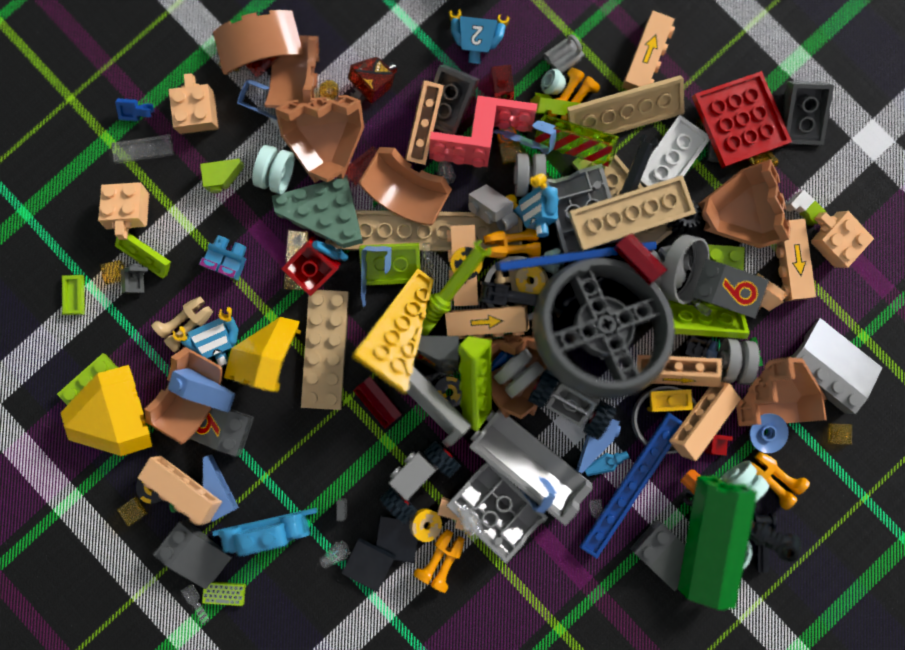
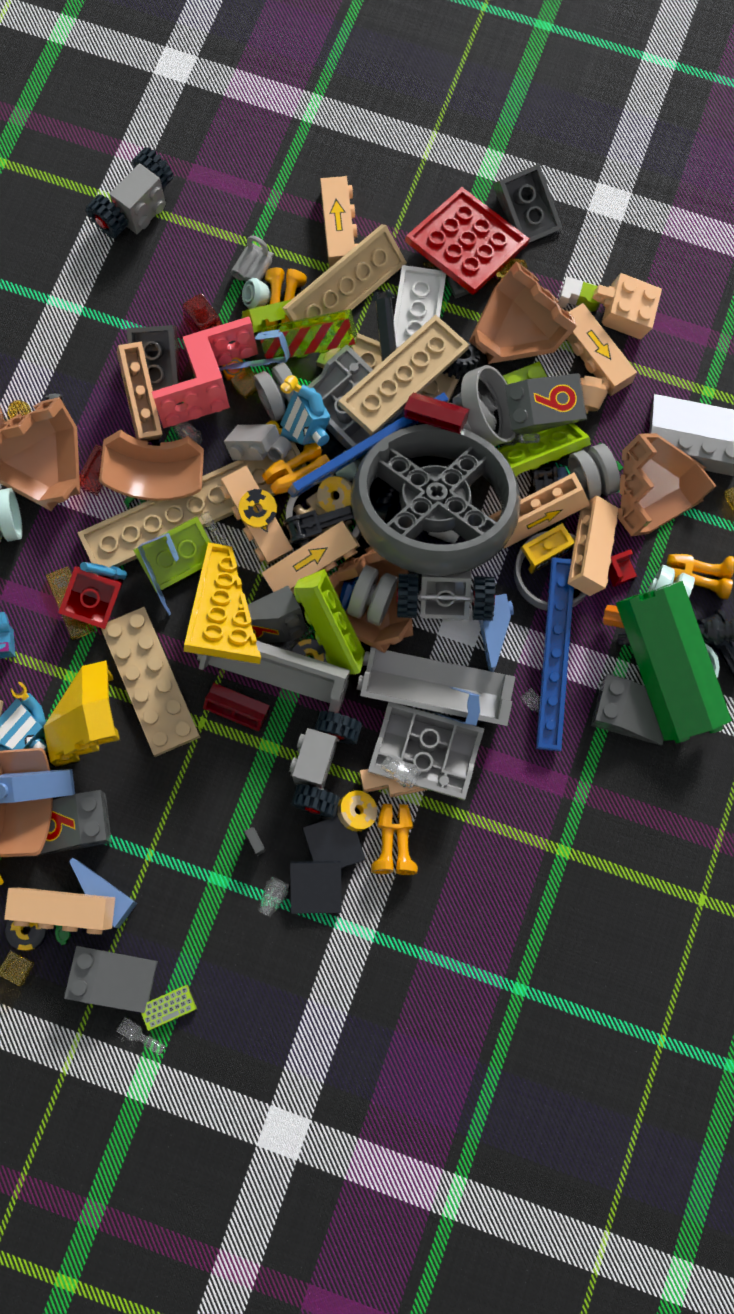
camera: 30 degrees left, 10 degrees down
(265, 533) = (182, 911): dark azure brick -> none
(324, 209) = (74, 531): sand green plate -> none
(372, 77) = (60, 375): clear red torso -> none
(441, 301) = (251, 564): lime piece -> none
(477, 34) = (150, 283): dark azure torso -> none
(606, 463) = (517, 648): dark azure piece -> none
(776, 435) = (675, 527): medium blue dish -> none

